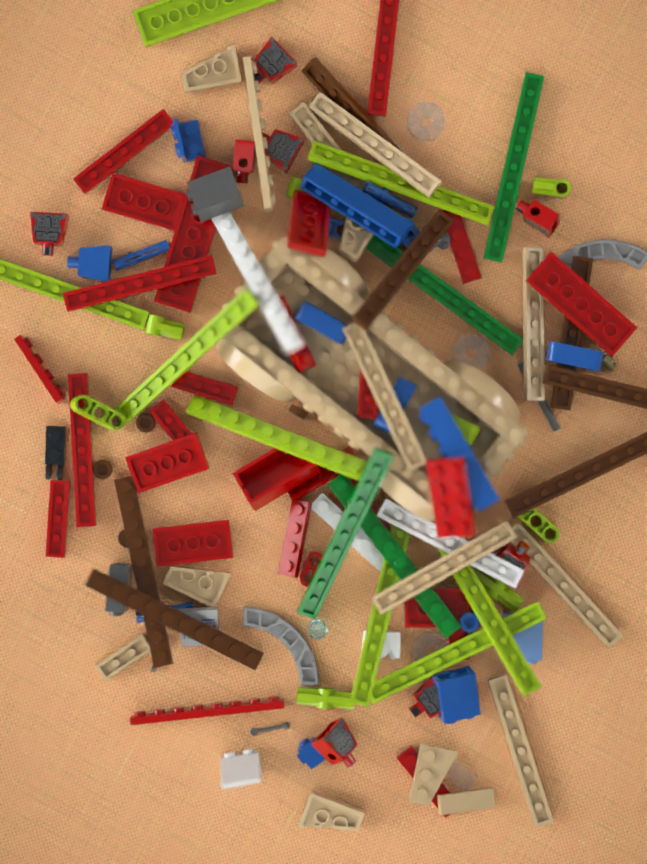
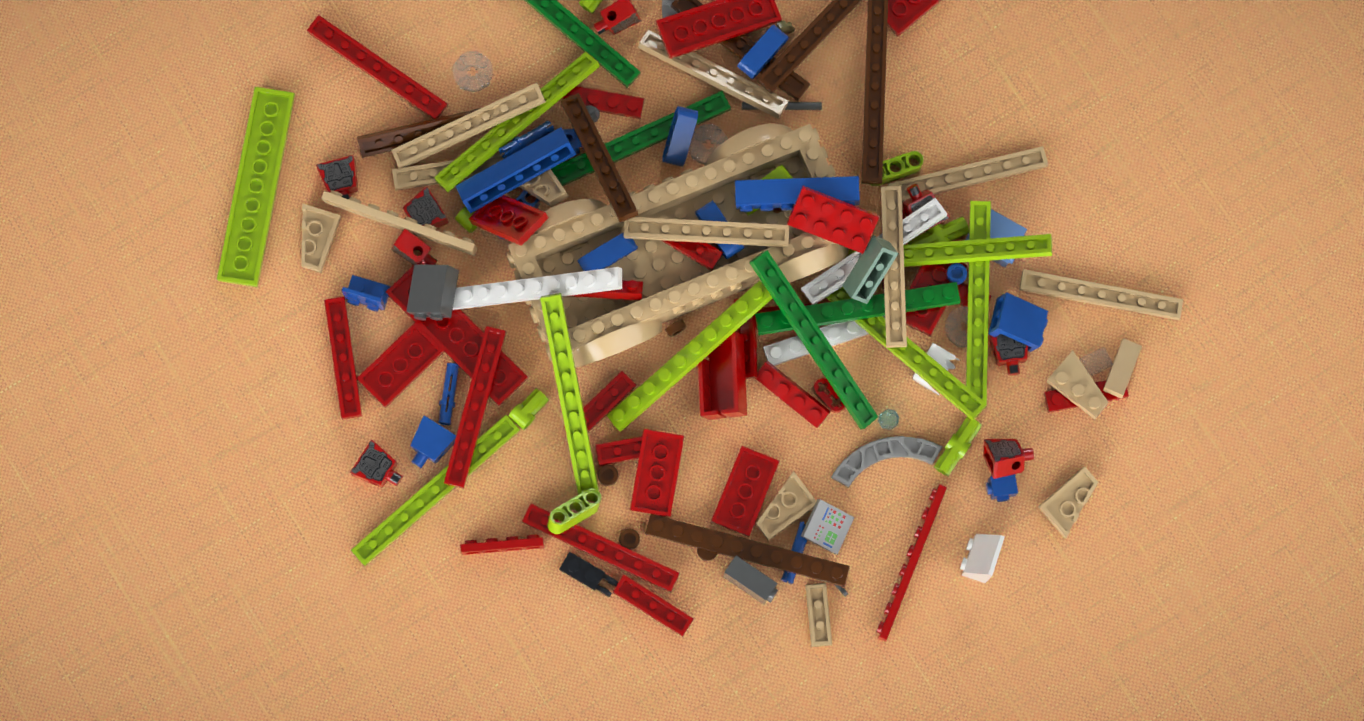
camera: 60 degrees left, 10 degrees down
(173, 619) = (807, 542): reddish brown plate -> none
(254, 731) = (954, 531): dark grey hinge -> none
(429, 550) = (870, 269): none -> sand green brick
(463, 326) = (680, 136): none -> blue beam

